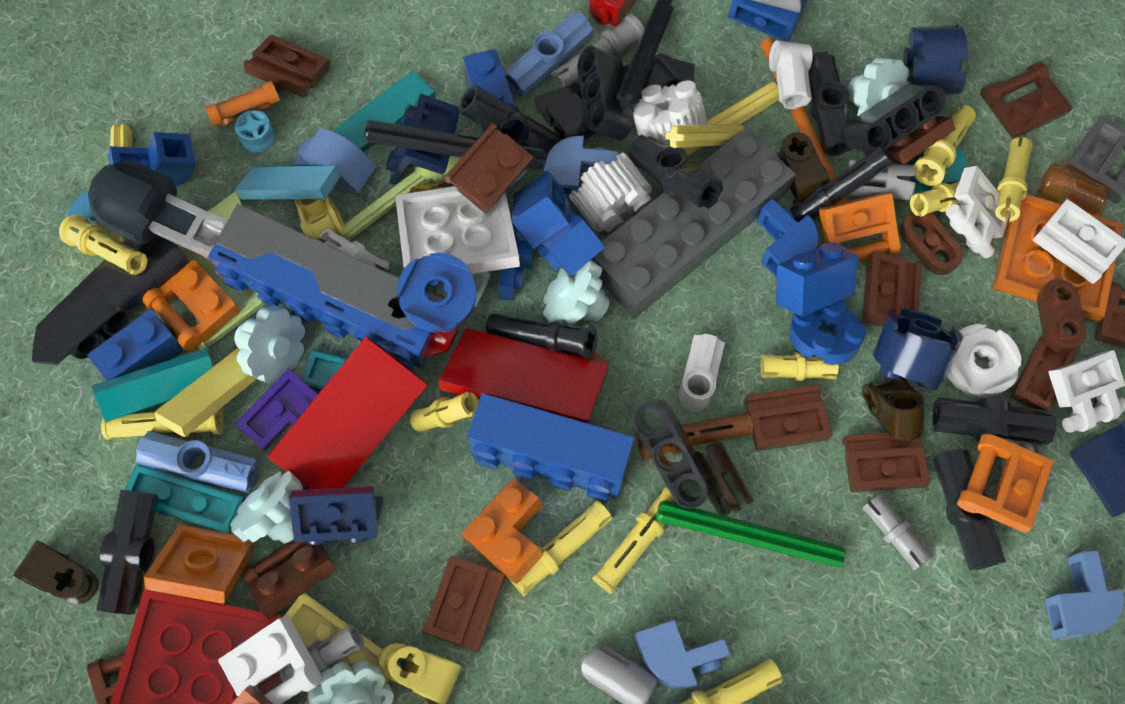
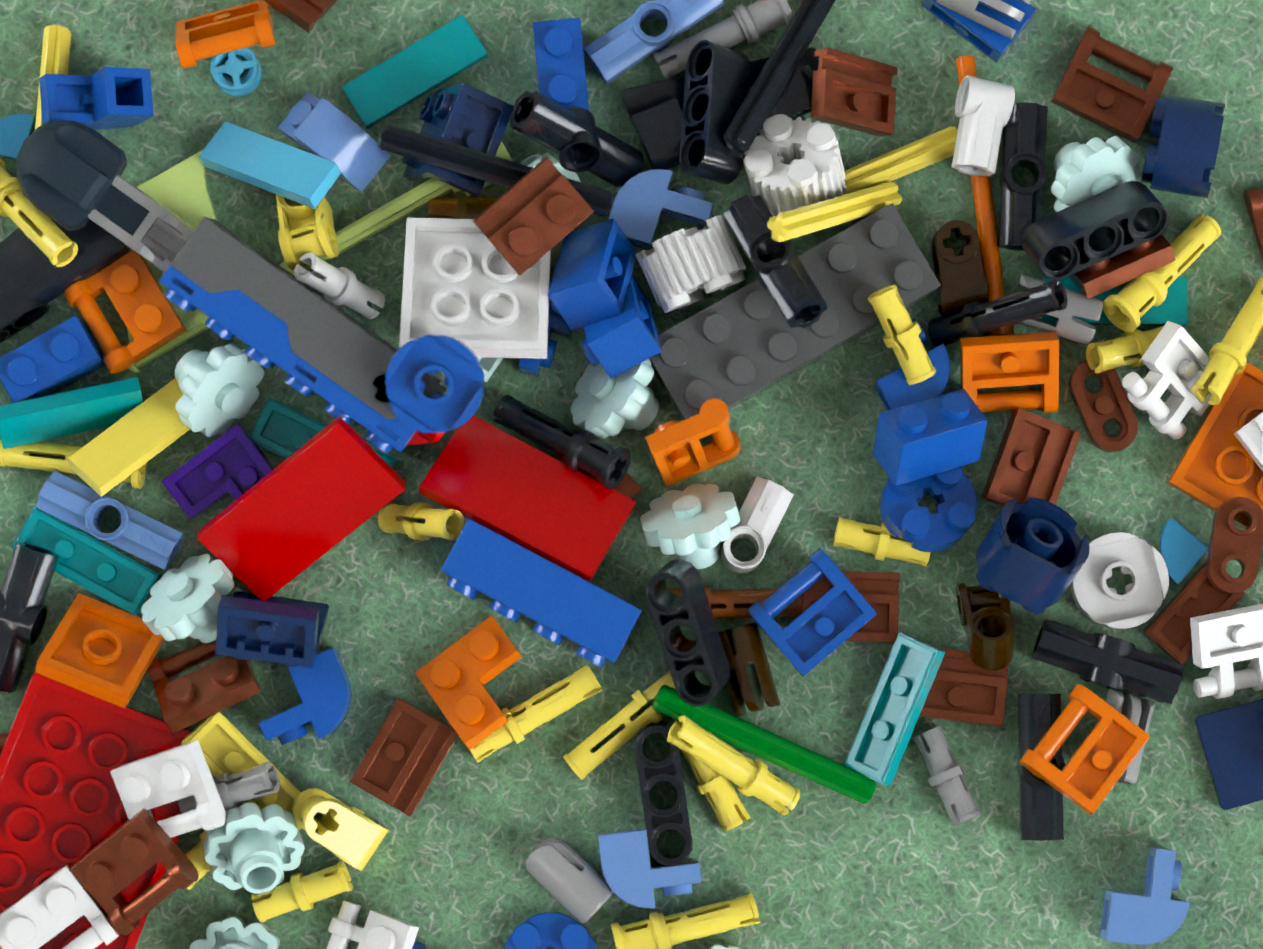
camera: 15 degrees right, 15 degrees up
(391, 572) = (325, 701): none -> blue brick
(632, 317) = (678, 447): none -> orange plate
(654, 376) = (691, 523): none -> light aqua plant
(680, 571) = (658, 819): none -> black beam
(700, 65) = (854, 92): none -> copper plate
(718, 574) = (719, 793): none -> light yellow pin
(744, 560) = (744, 772): none -> light yellow pin
(774, 429) = (823, 624): none -> blue plate
(795, 227) = (902, 334): none -> light yellow pin
(844, 486) = (894, 708): none -> teal tile
(862, 45) = (1105, 97): none -> copper plate
(1018, 329) = (1179, 550): none -> dark azure tile

